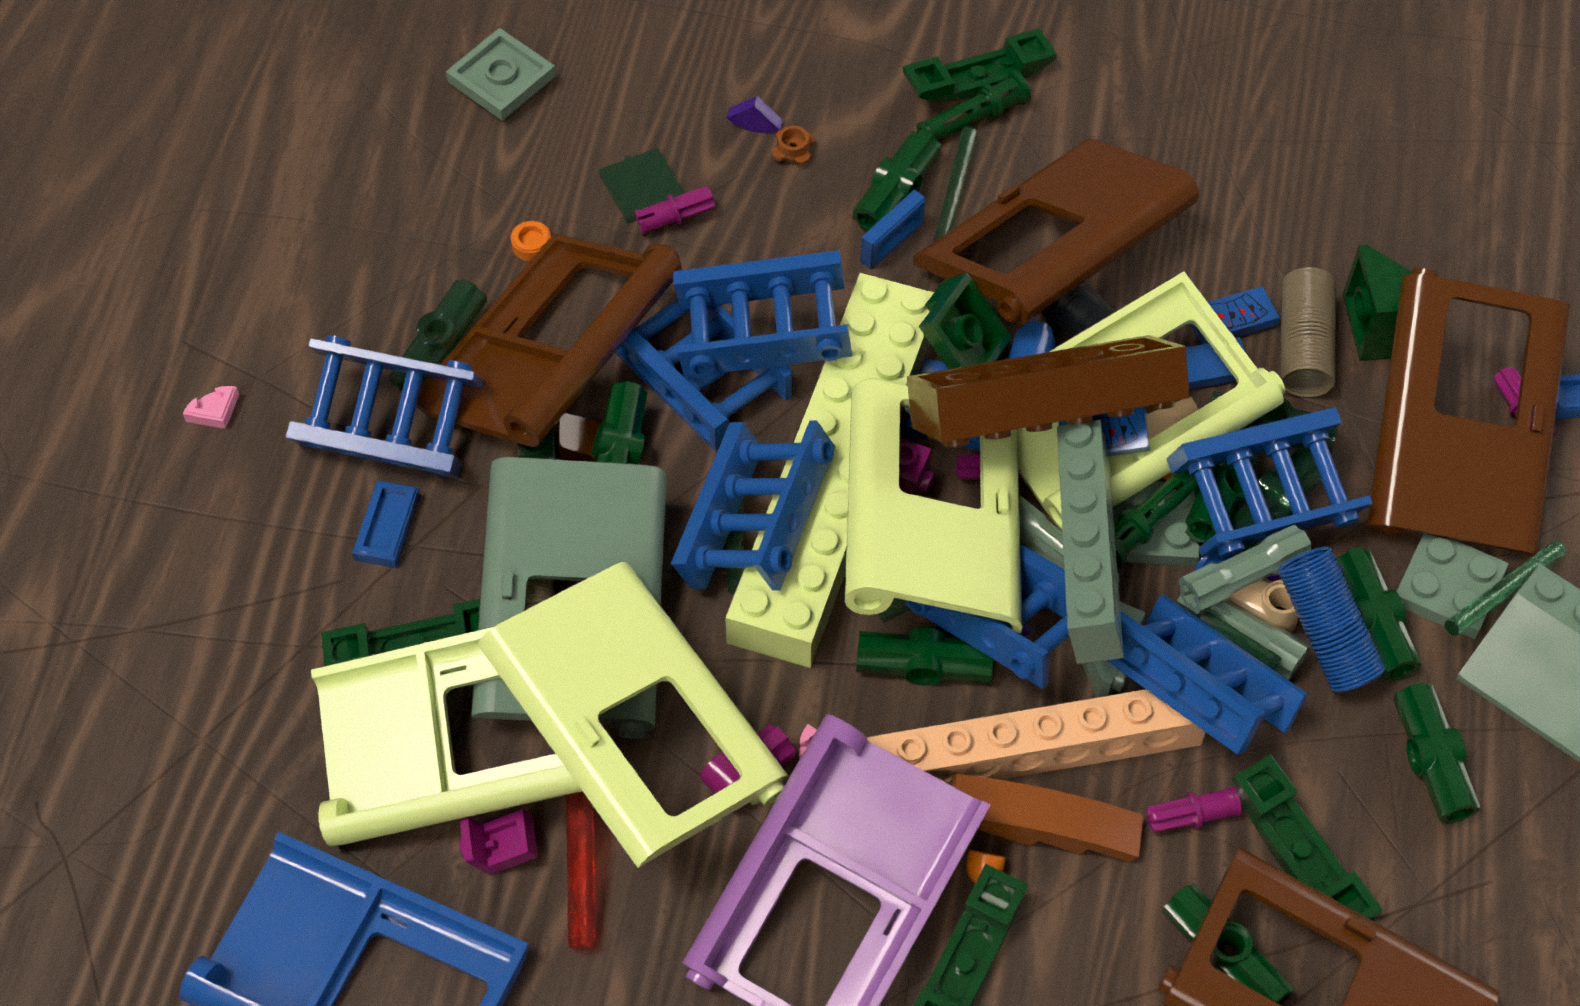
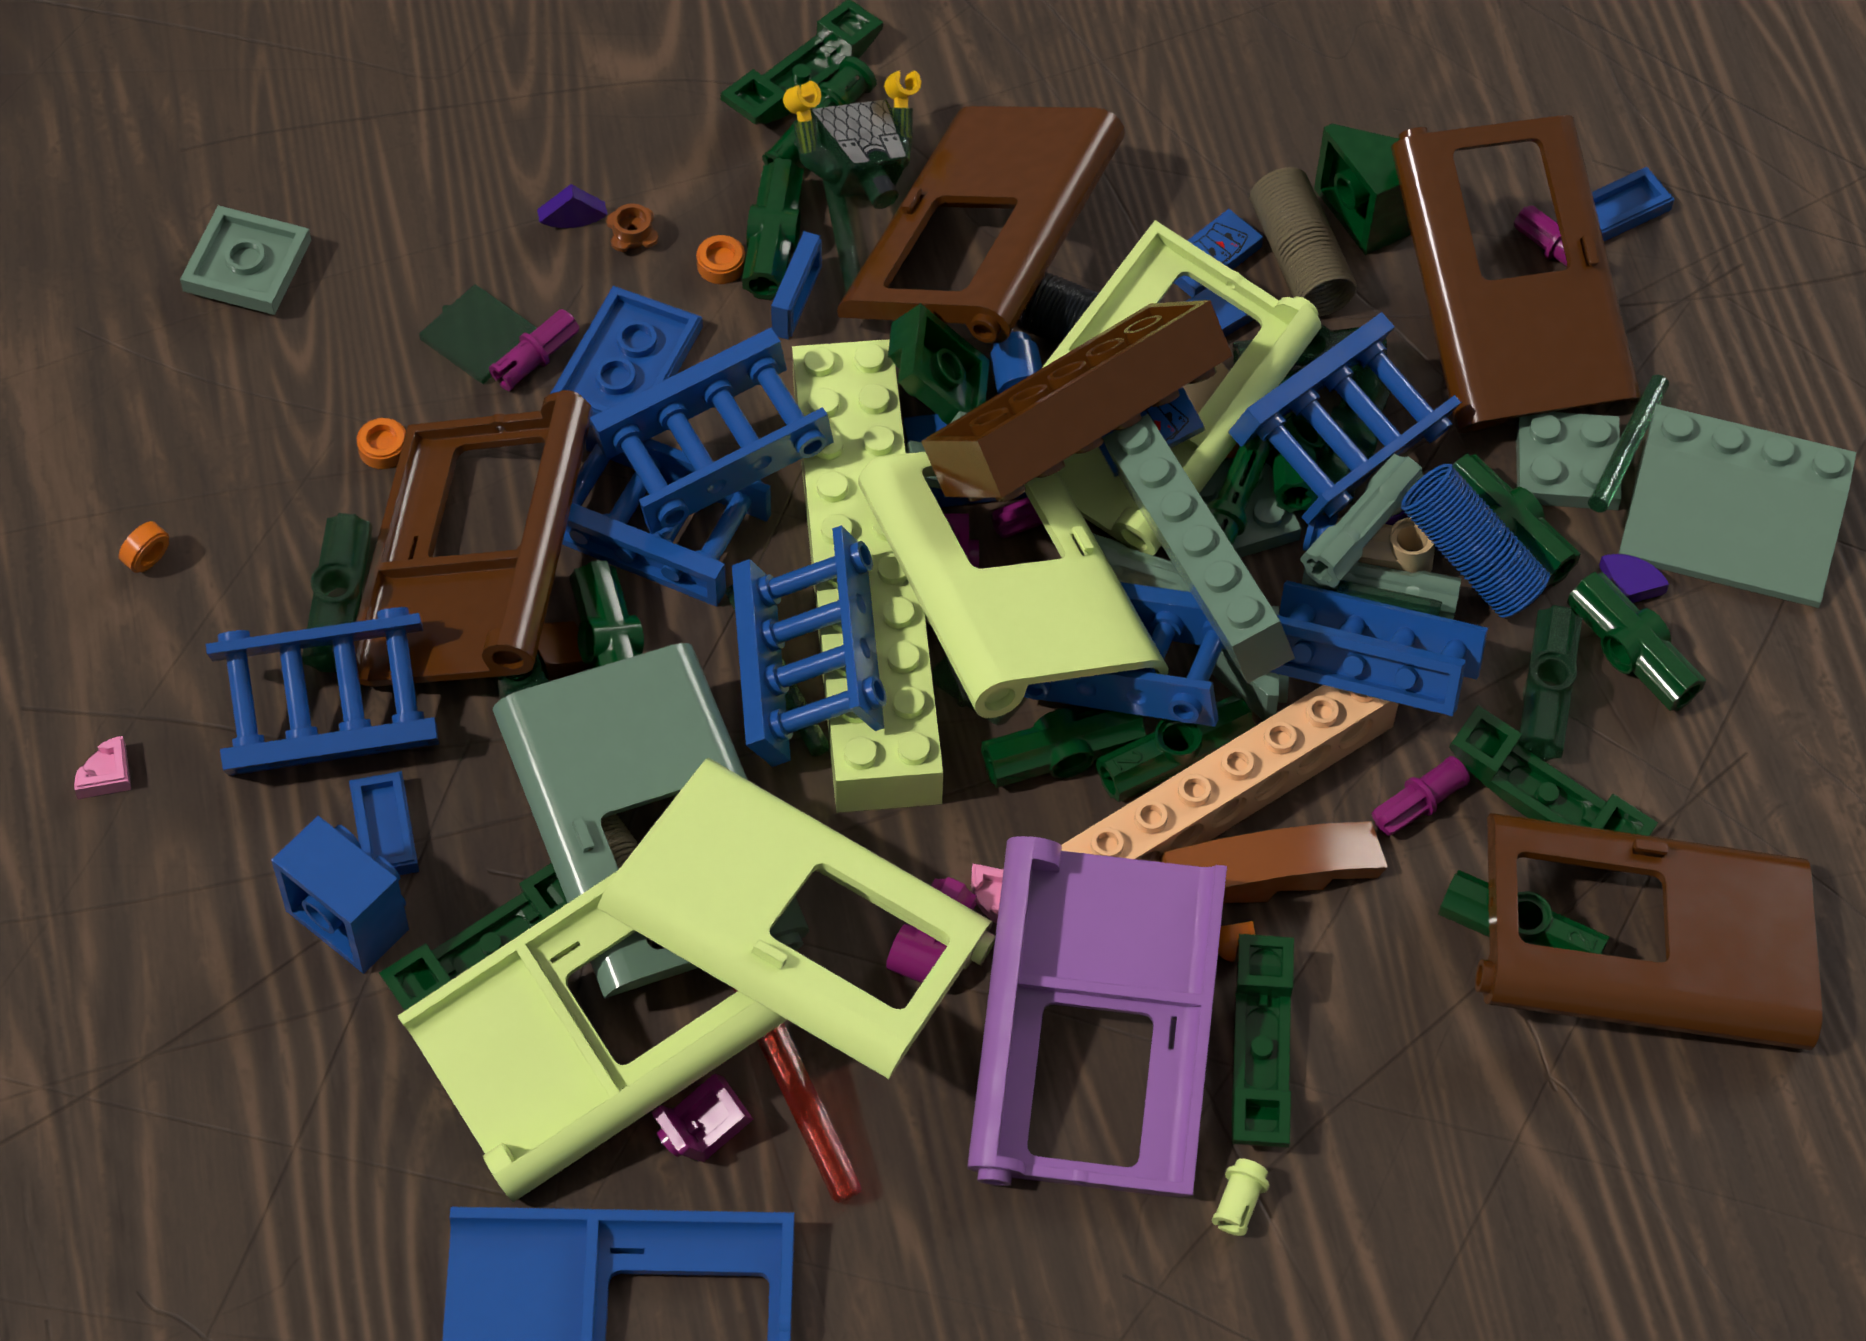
camera: 25 degrees left, 0 degrees up
(321, 255) = (144, 547): none -> orange tile
(322, 561) = (341, 893): none -> blue brick
(743, 231) = (628, 349): none -> blue tile
(847, 190) = (720, 259): none -> orange tile
(984, 694) = (1152, 762): none -> dark green piece
(988, 138) = (857, 144): none -> torso
(1357, 740) = (1552, 660): none -> clear green piece
(1460, 699) = (1634, 576): none -> dark purple tile

